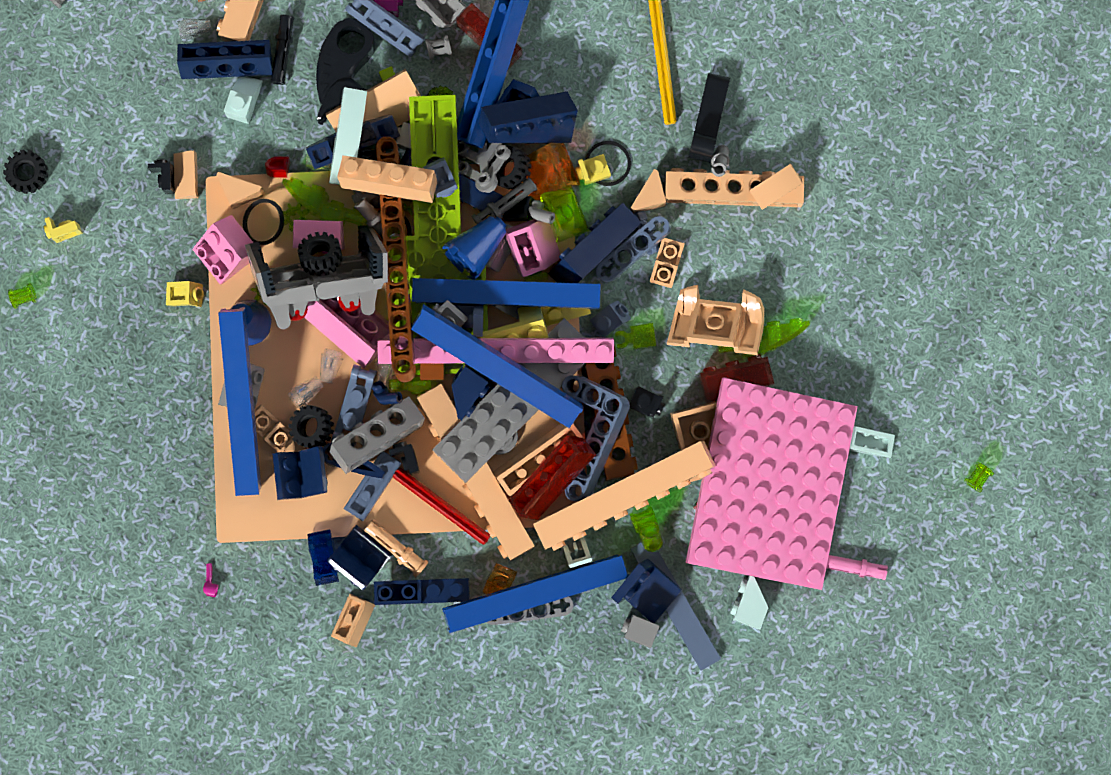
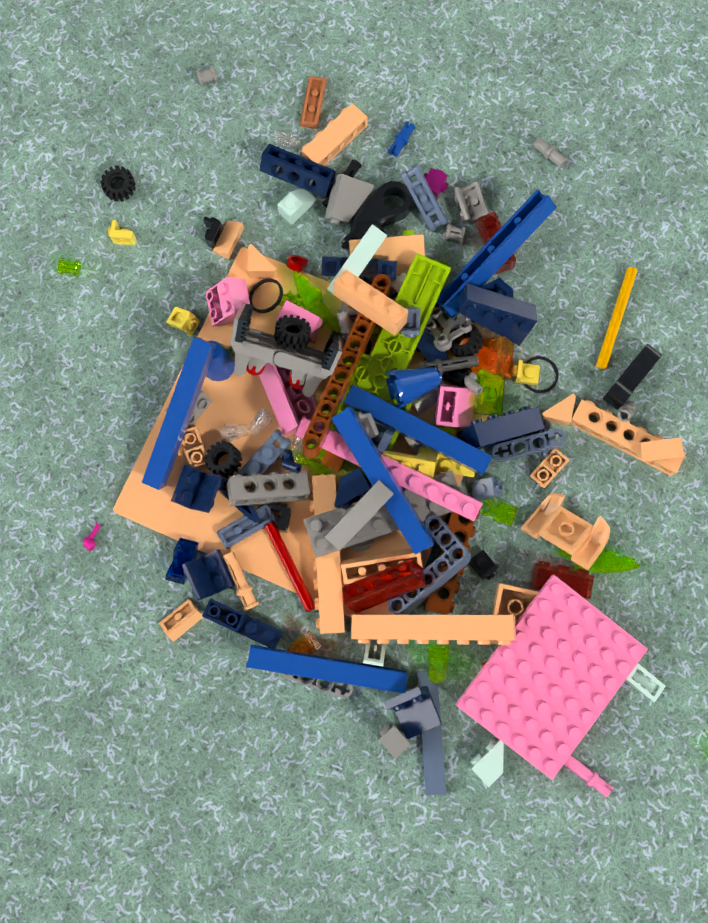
camera: 30 degrees right, 5 degrees down
(297, 66) = (346, 198): none -> light grey slope
(490, 416) = (359, 515): none -> light grey slope

